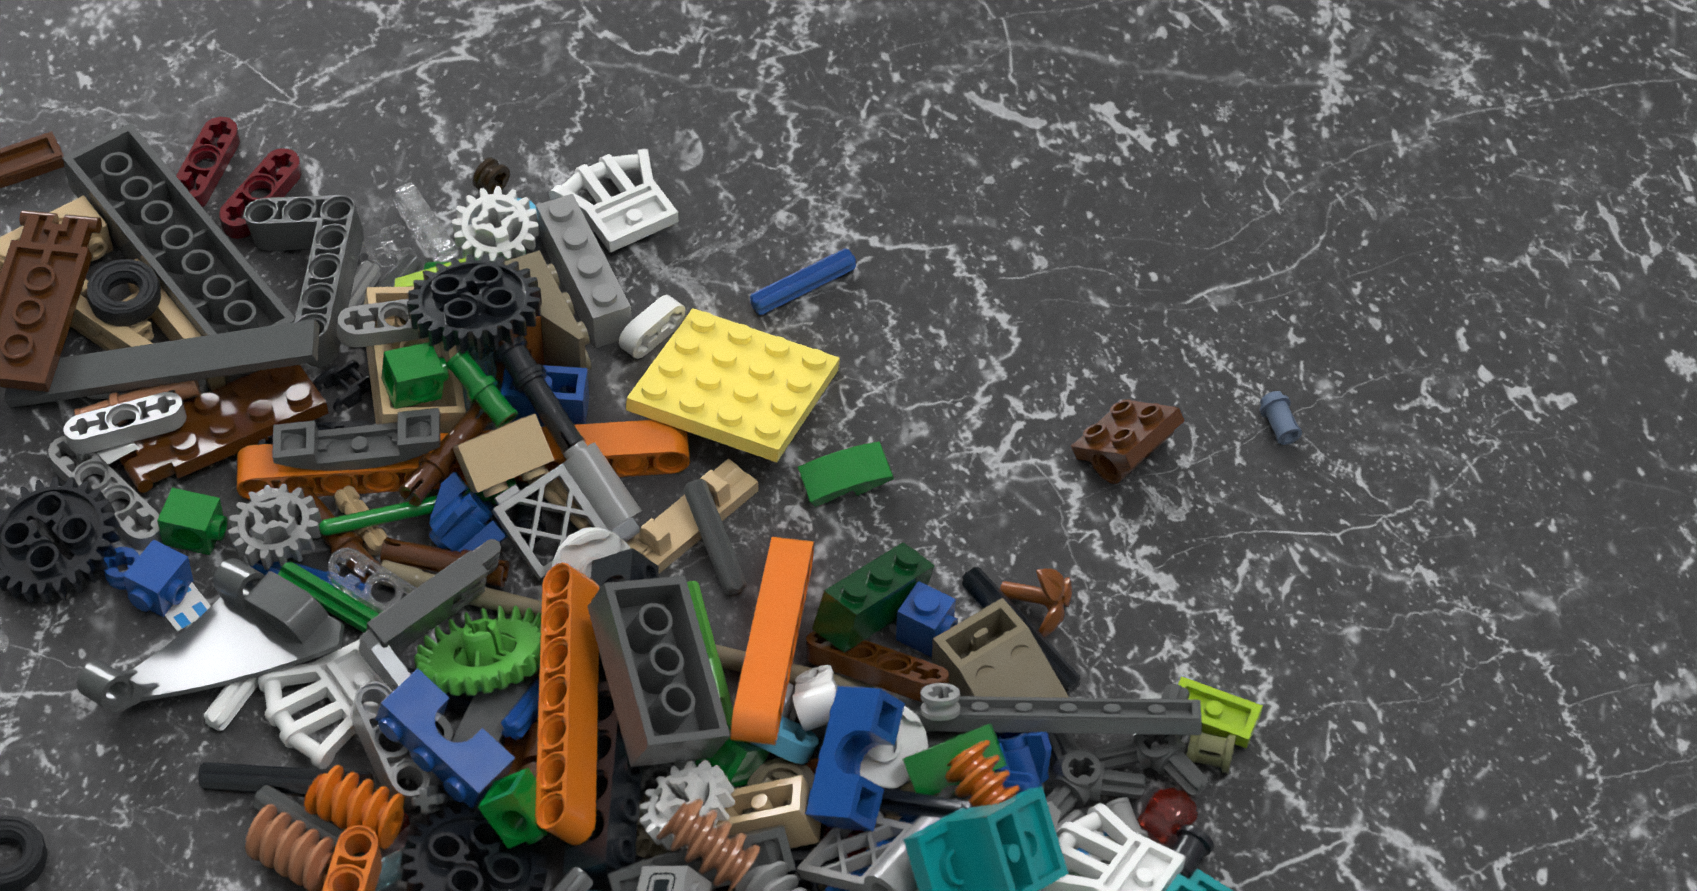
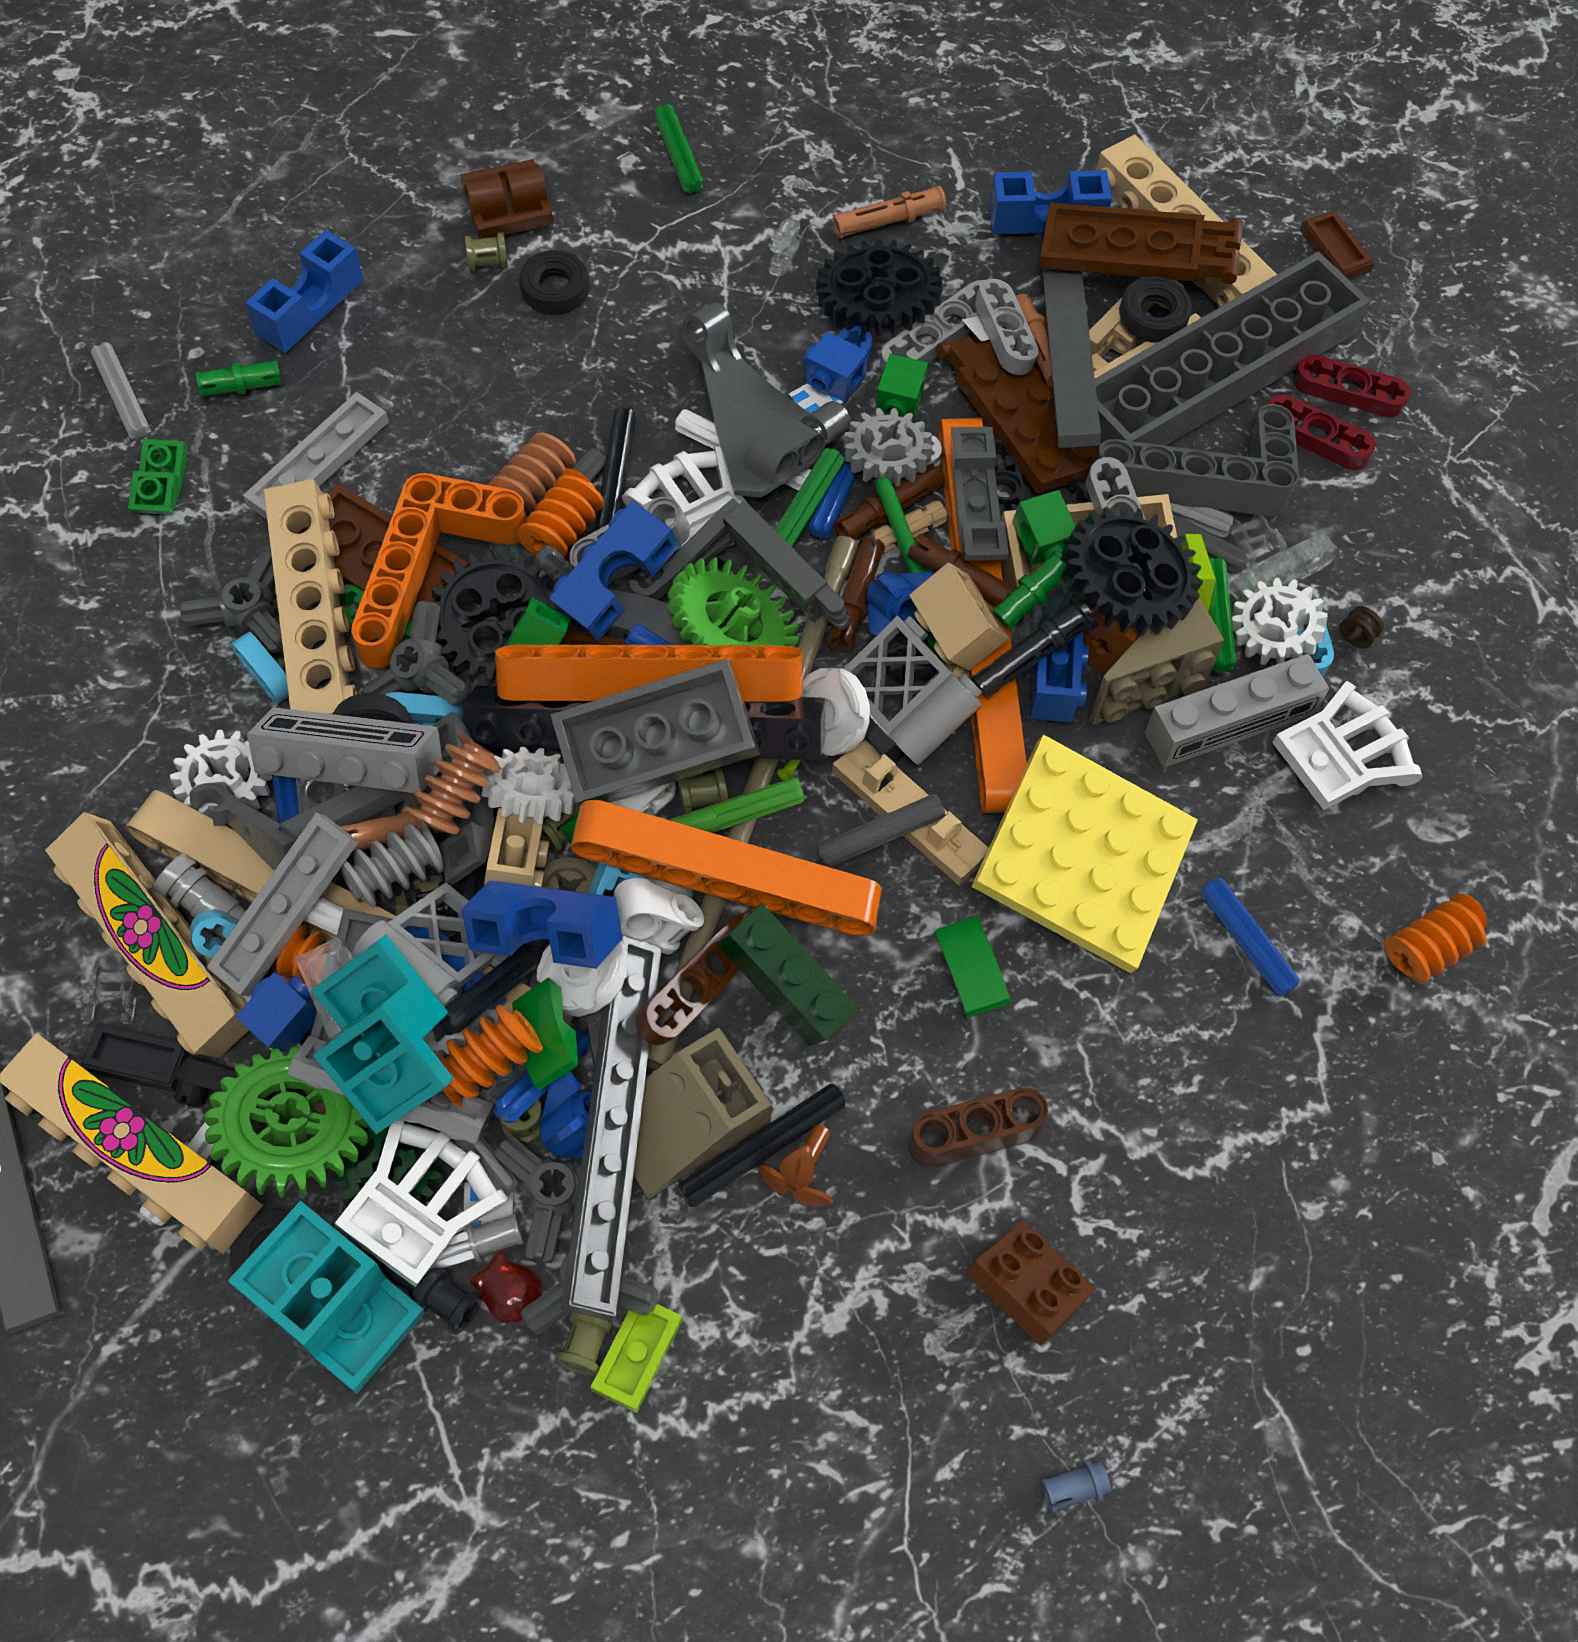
camera: 90 degrees right, 10 degrees up
(351, 582) = (808, 520): clear beam -> none
(652, 326) = (1167, 778): white beam -> none
(805, 151) = (1438, 938): none -> orange piece
(924, 617) = (769, 1037): blue brick -> none
(940, 701) = (618, 1034): light grey bush -> none
(996, 471) = (991, 1110): none -> reddish brown beam

